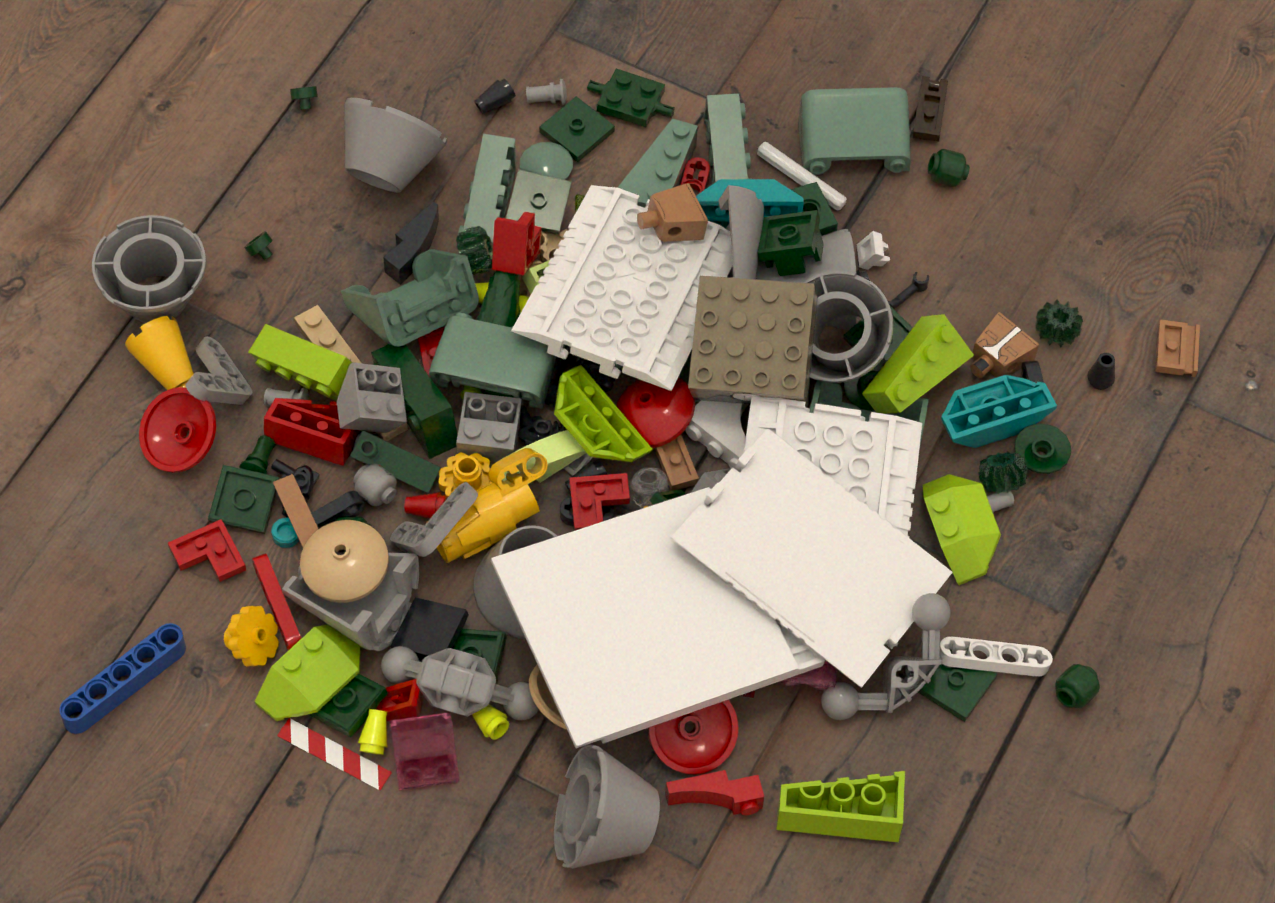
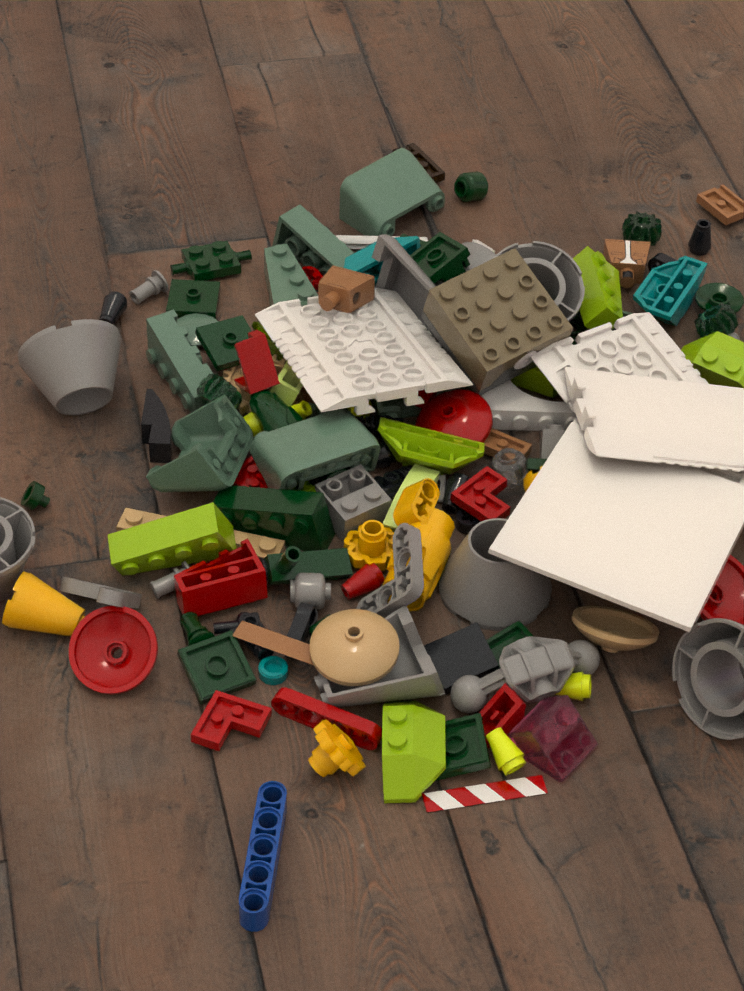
camera: 40 degrees left, 15 degrees down
(371, 398) = (257, 525): light grey slope -> none

